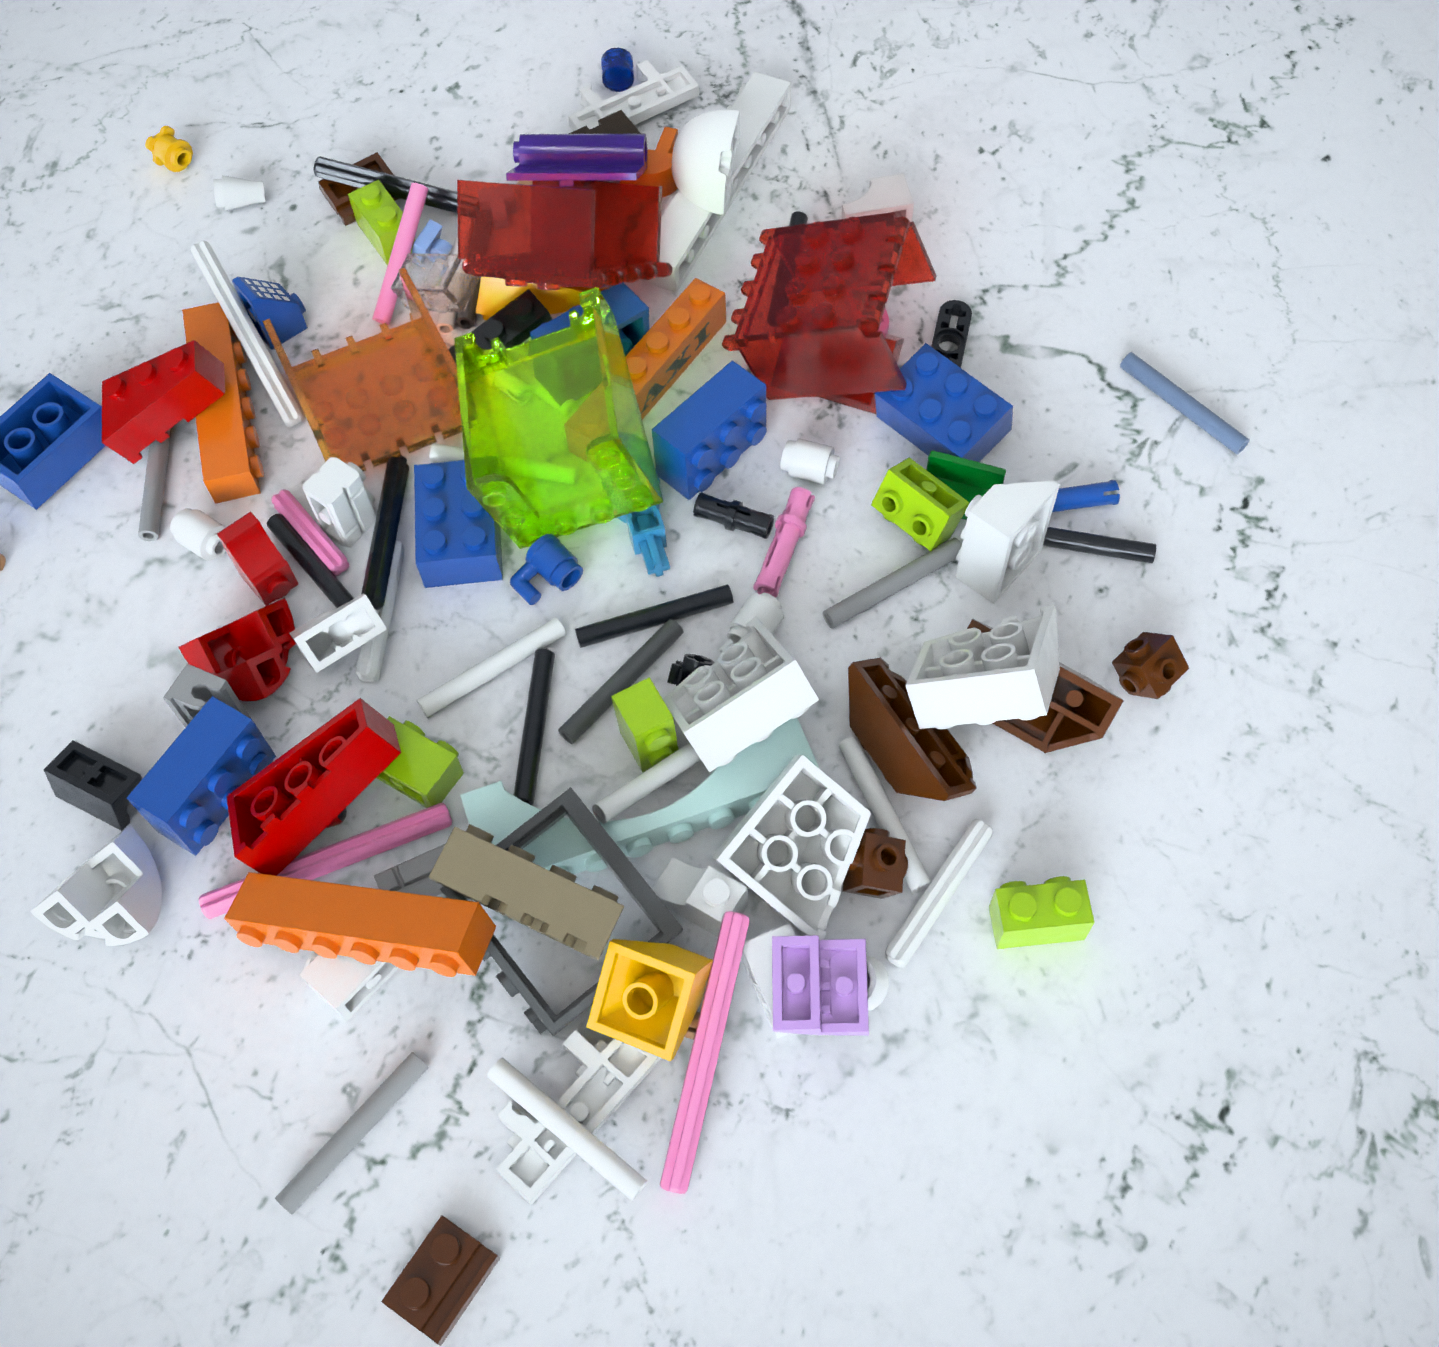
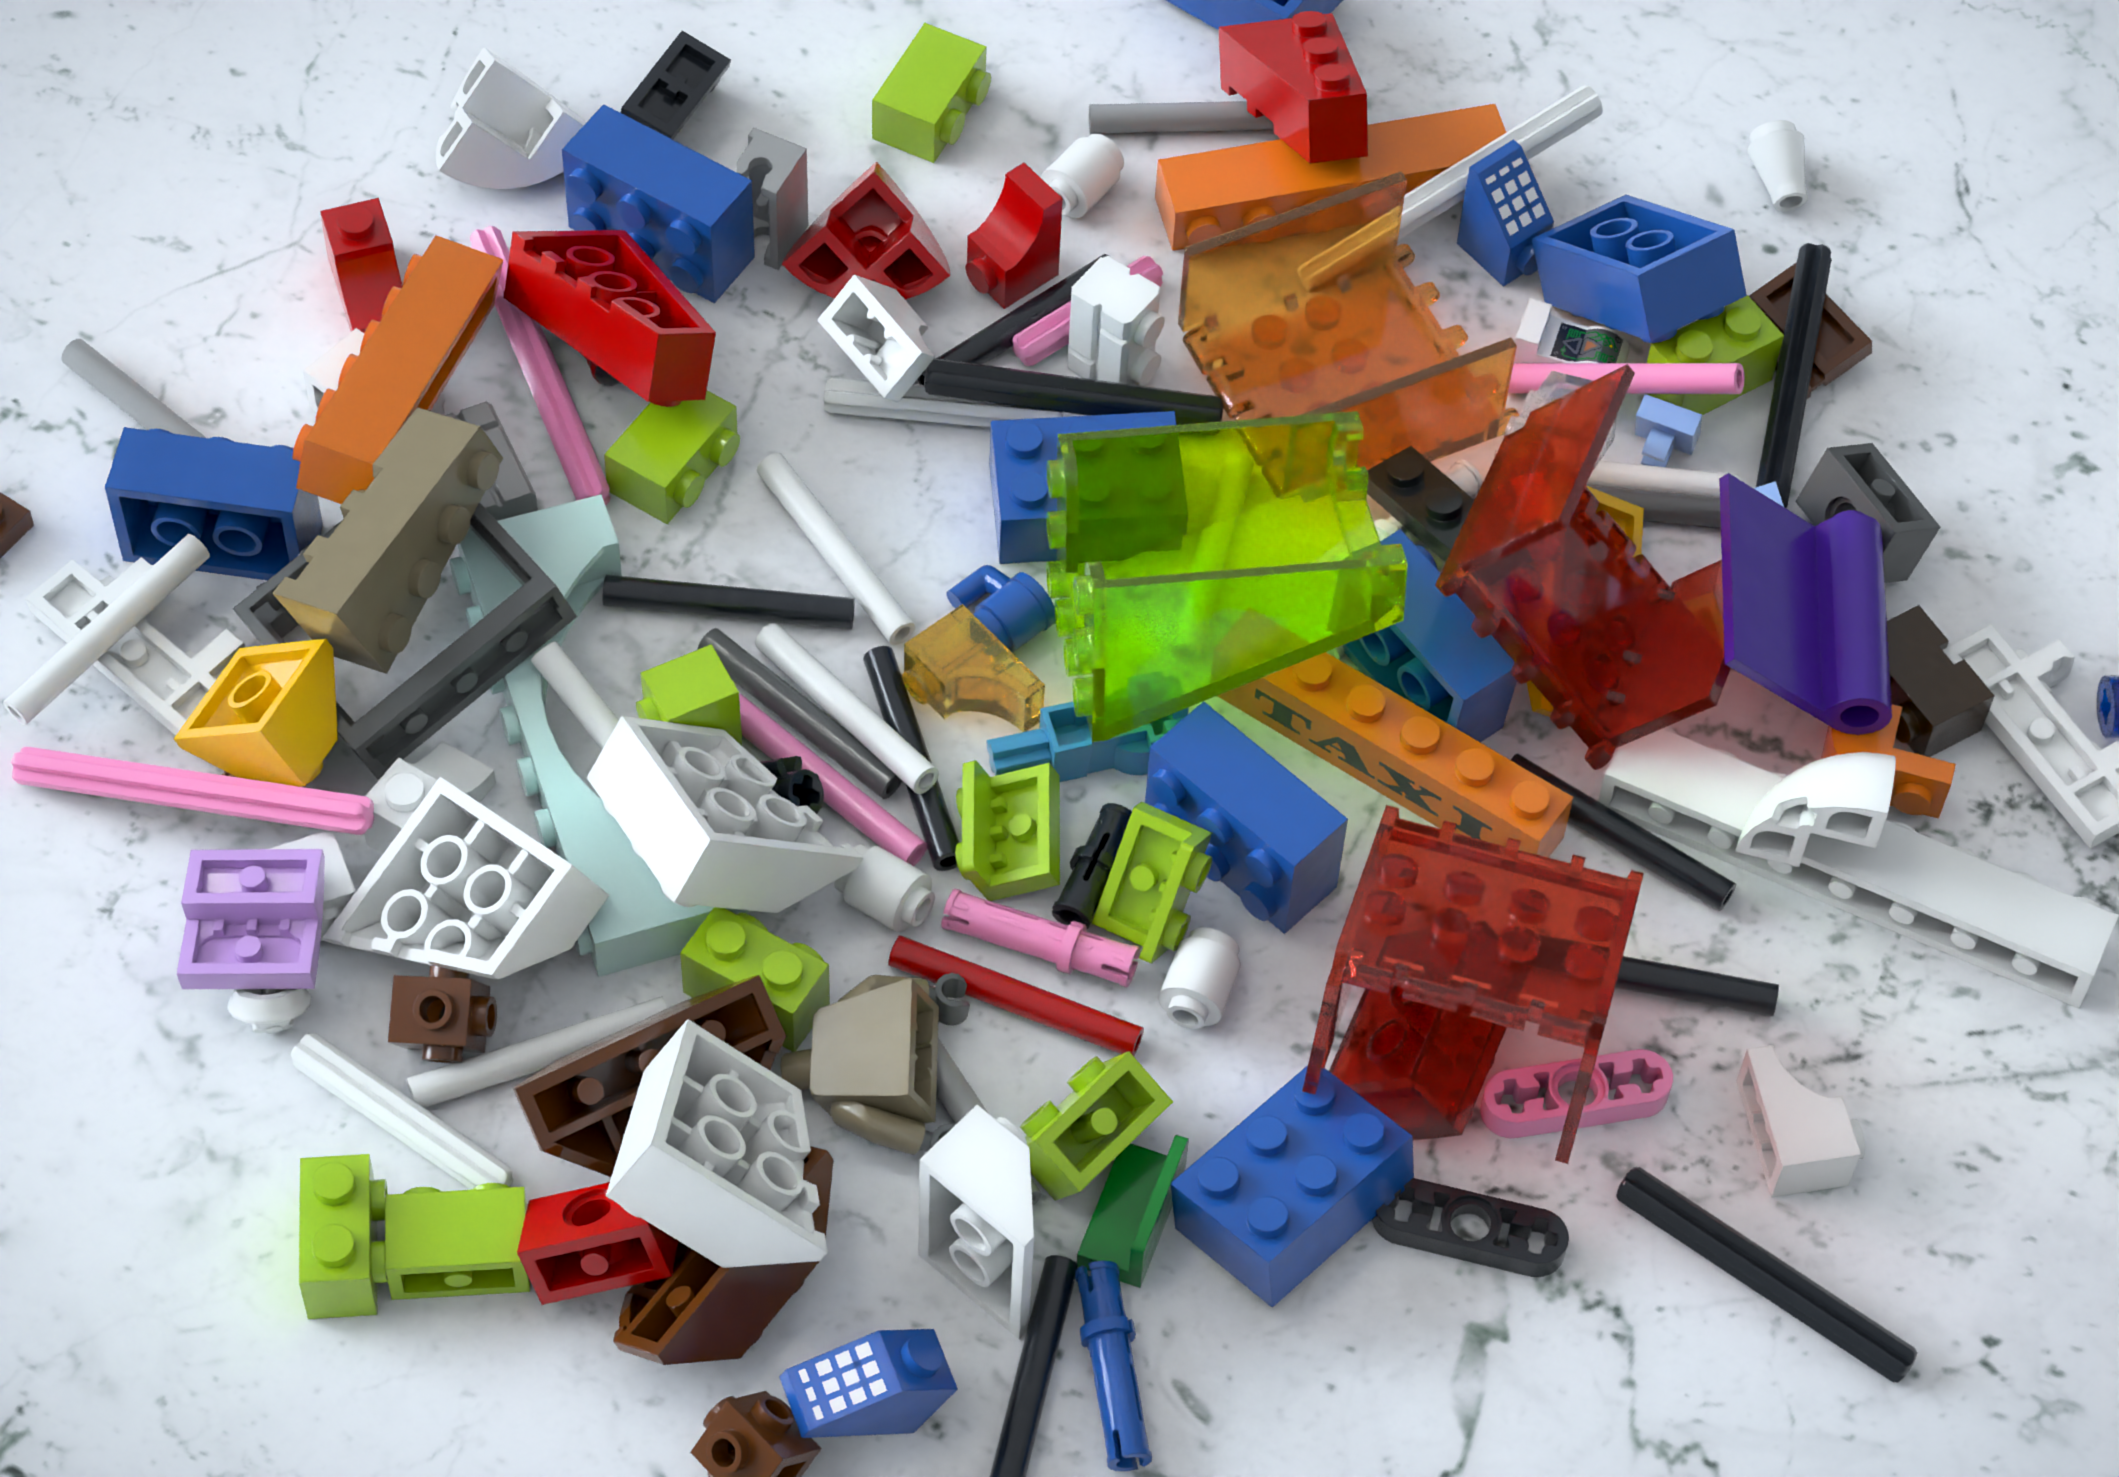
camera: 85 degrees right, 5 degrees down
(115, 622) = (930, 93): none -> lime brick
(169, 151) = (1869, 64): yellow brick -> none
(233, 984) = (361, 259): none -> red arch
(324, 238) = (1640, 268): none -> blue brick
(362, 292) = (1556, 340): none -> leg
(455, 1057) = (219, 490): none -> blue brick
(480, 153) = (1865, 482): none -> dark grey brick
(591, 584) = (967, 668): none -> clear yellow arch
(623, 649) = (847, 708): none -> white piece
(692, 644) = (838, 791): none -> bright pink piece
(705, 268) = (1639, 843): none -> black piece
(711, 555) = (1009, 830): none -> lime bracket
(757, 471) = (1152, 880): none -> lime bracket
(822, 557) = (1018, 997): none -> red piece
(830, 683) = (738, 947): none -> lime brick
(884, 612) = (879, 1058): none -> dark tan torso
(968, 218) = (1767, 1274): none -> black axle
(1030, 839) = (455, 1242): none -> lime brick
(1047, 770) = (589, 1245): none -> red brick
(1105, 603) = (870, 1385): none -> blue slope

